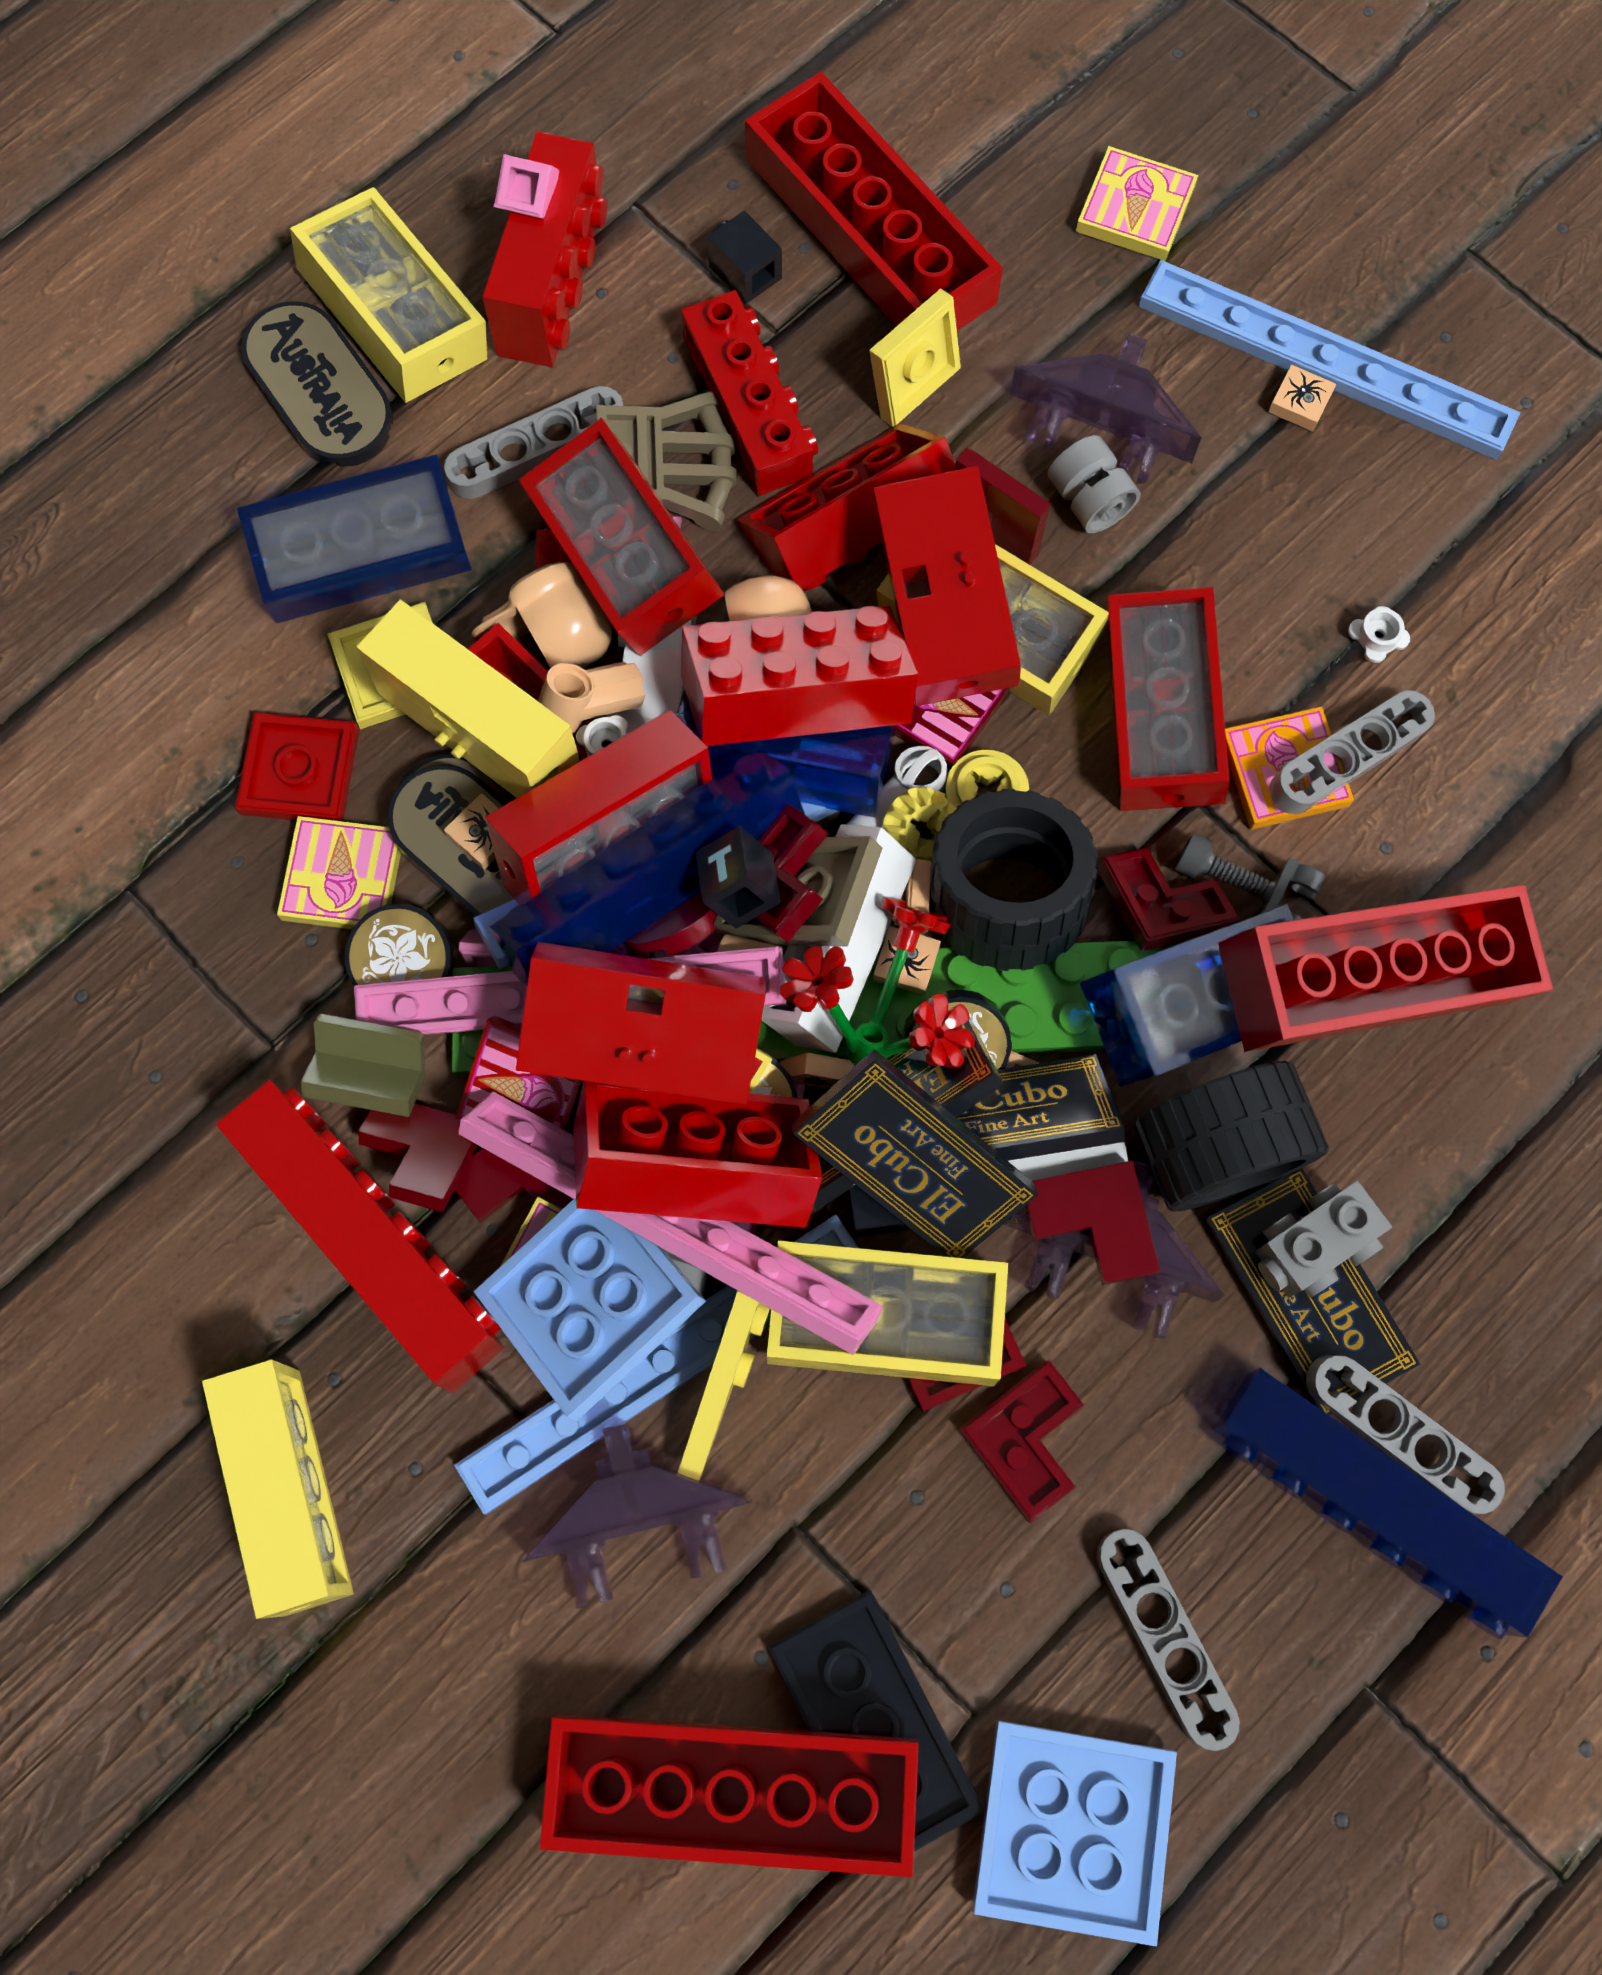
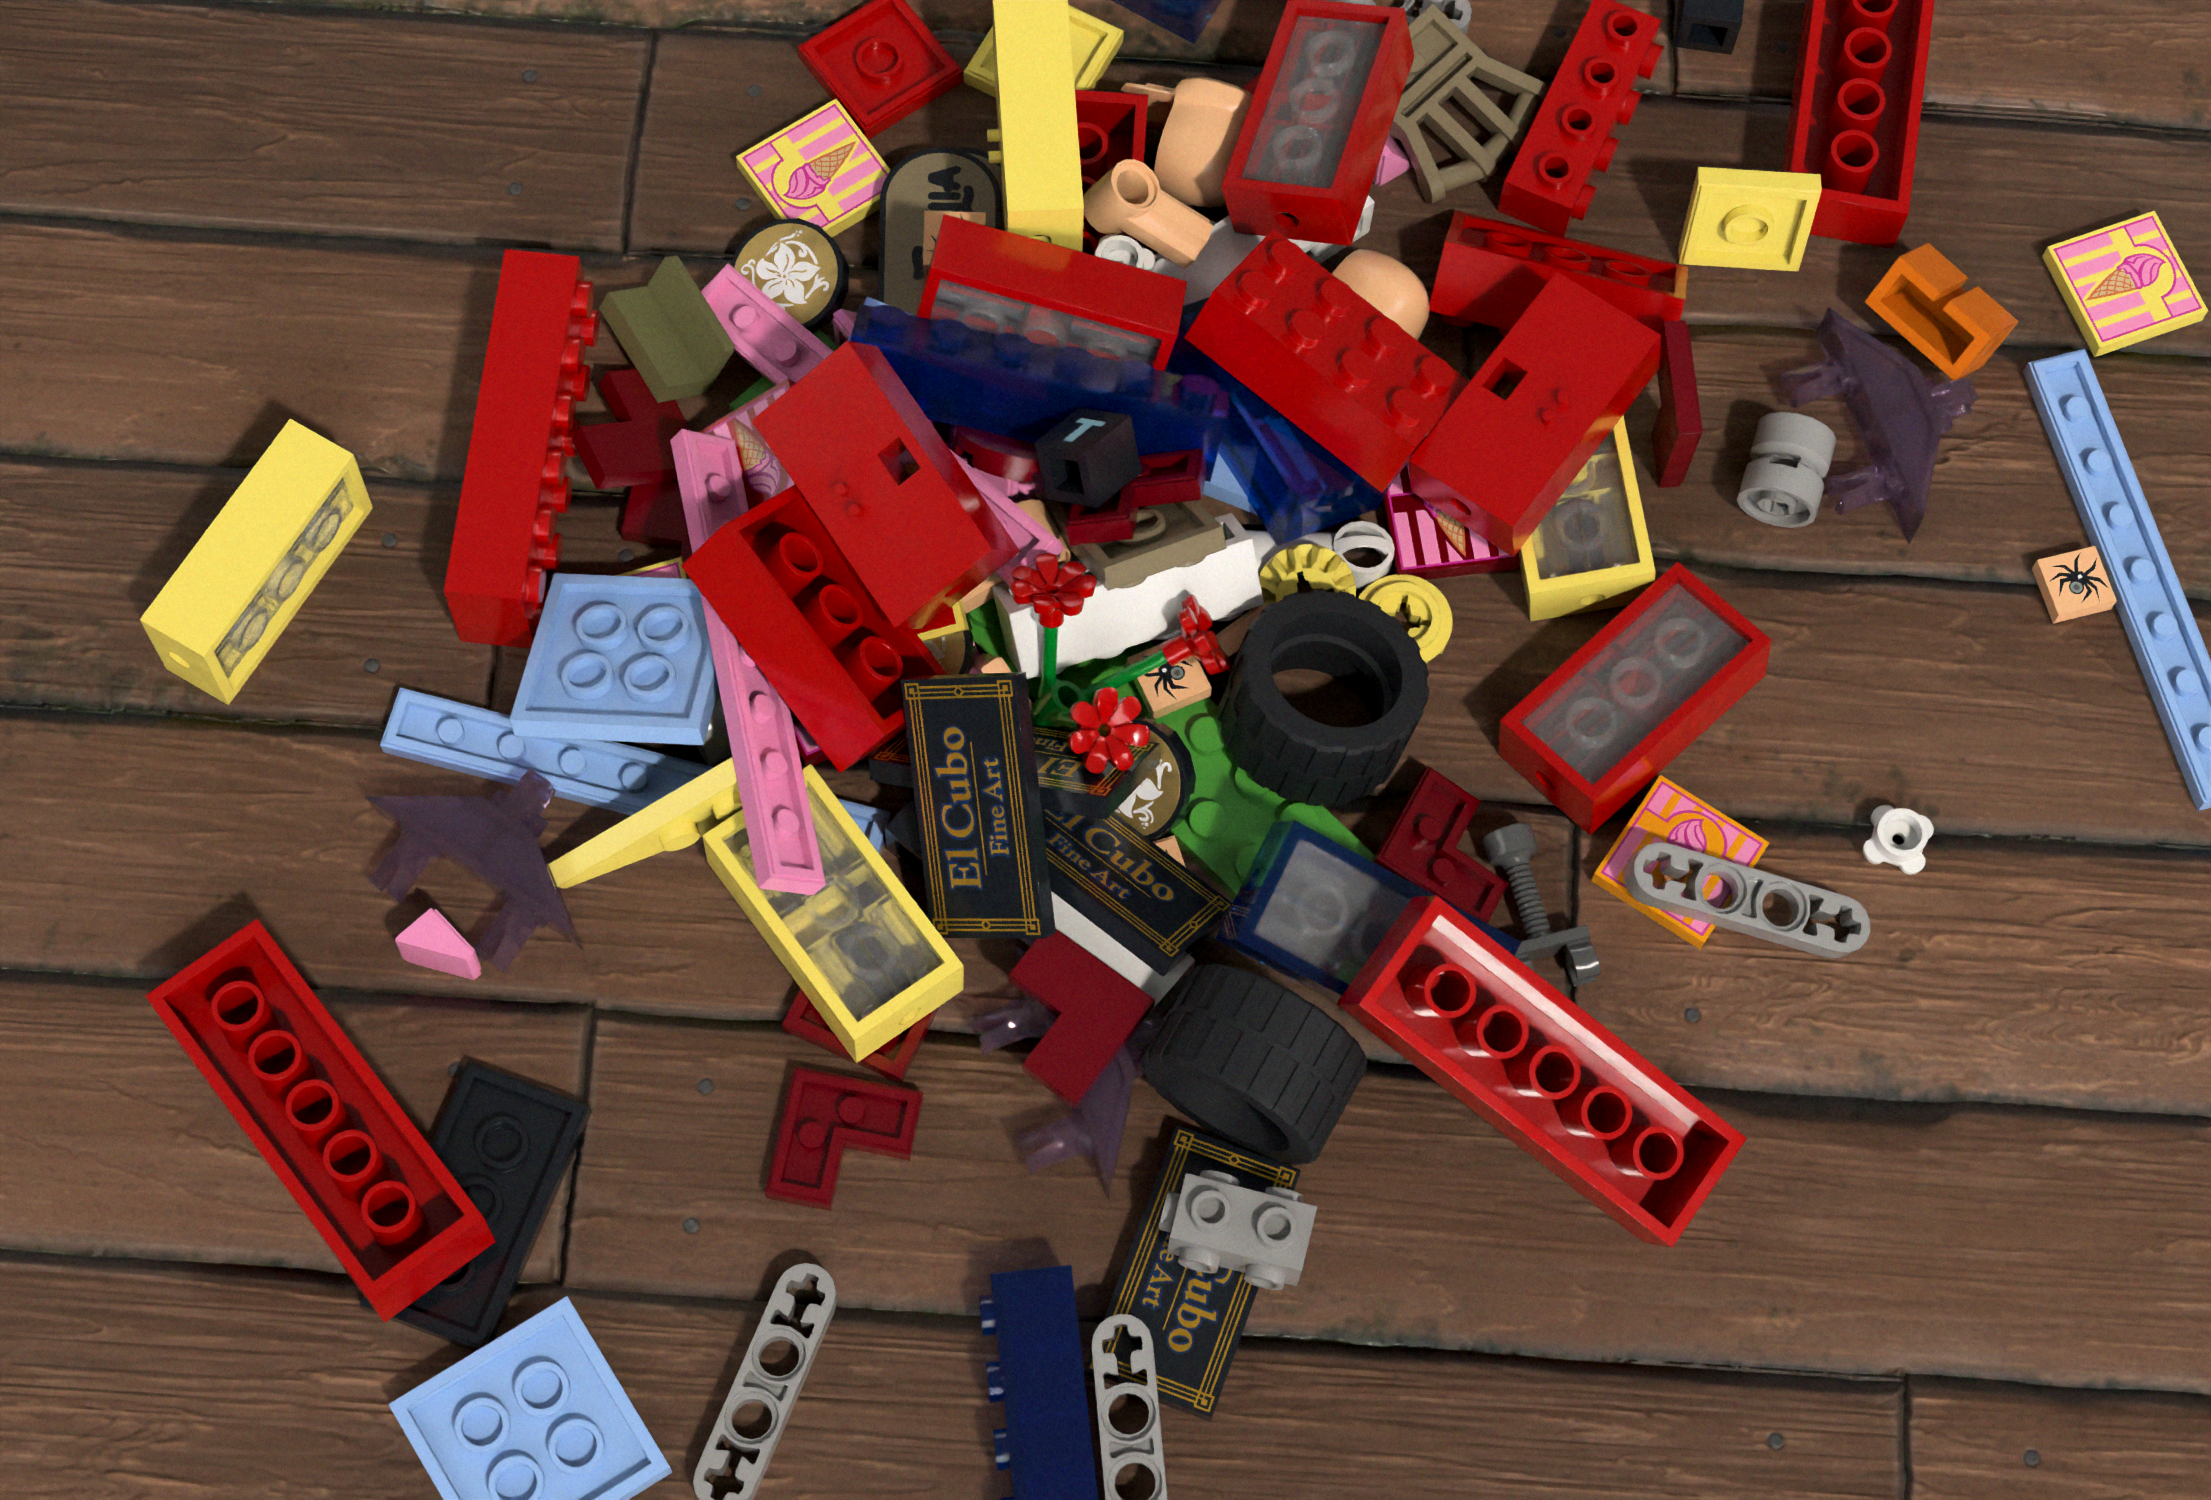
camera: 45 degrees right, 5 degrees down
(670, 1596) = (438, 946): none -> bright pink slope
(1076, 315) = (1935, 314): none -> orange piece

